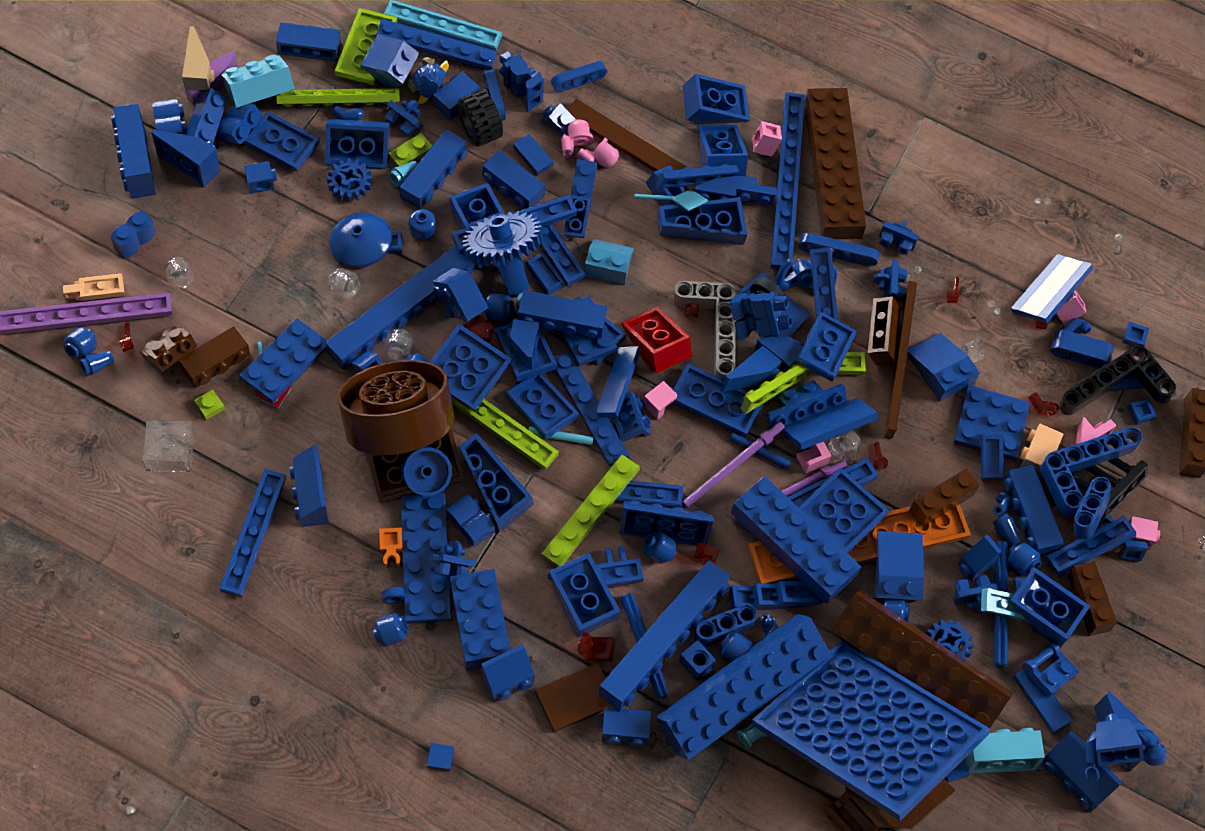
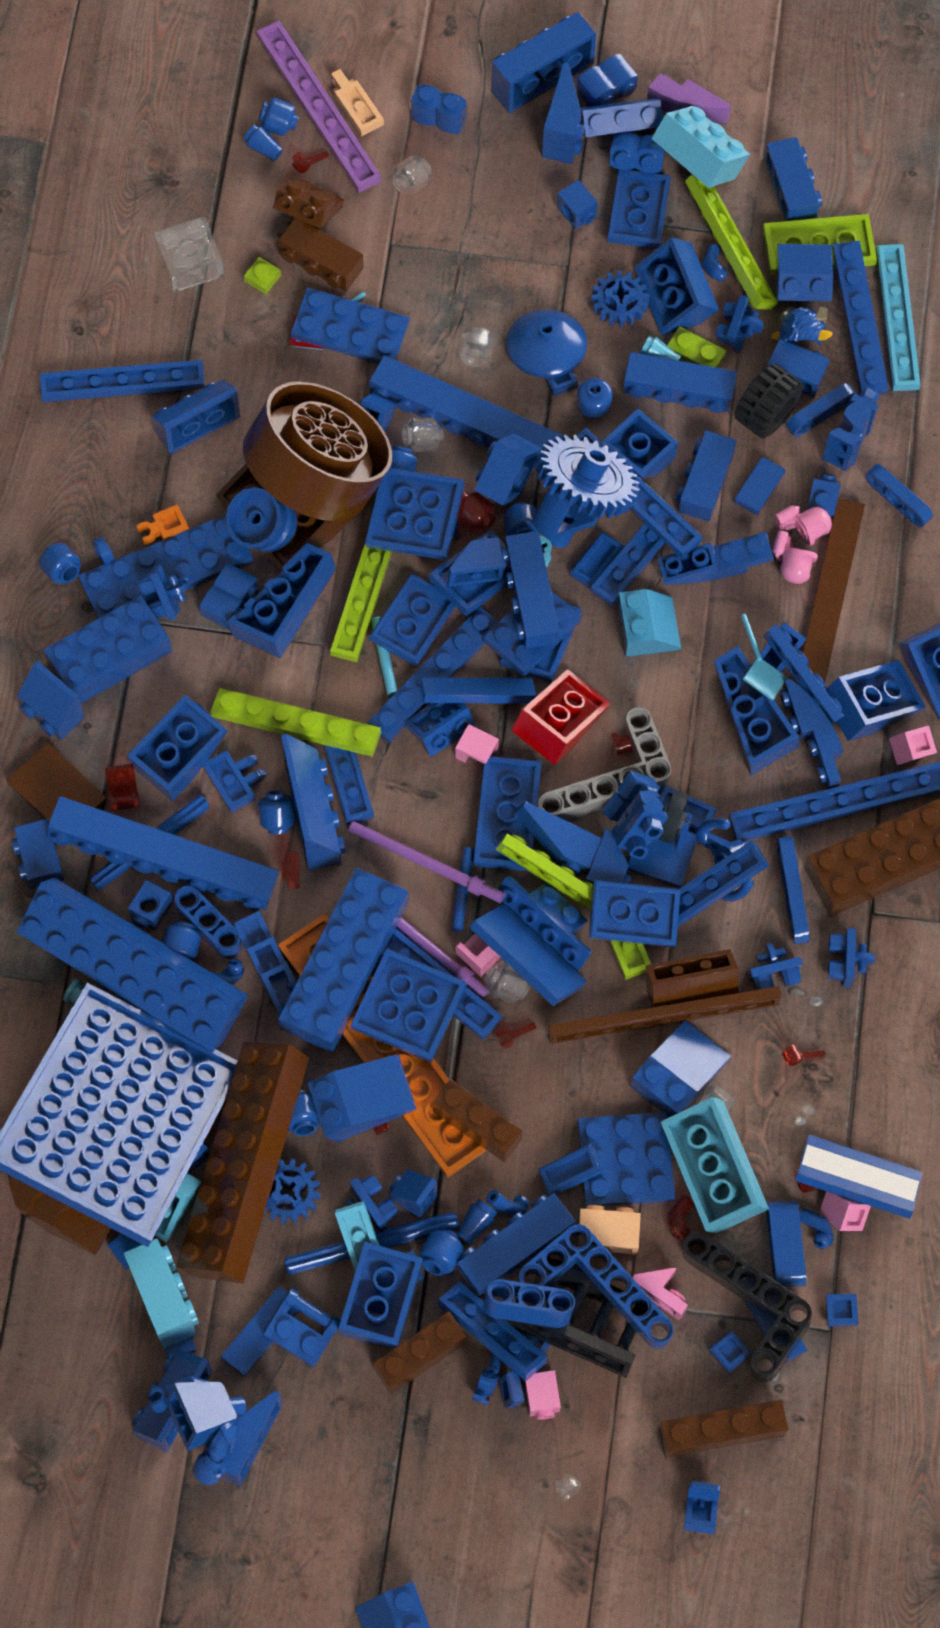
camera: 75 degrees right, 5 degrees up
(196, 69) = (685, 72): tan slope -> none
(1021, 366) = (714, 1165): none -> medium azure brick
(1126, 564) = (488, 1380): none -> blue piece

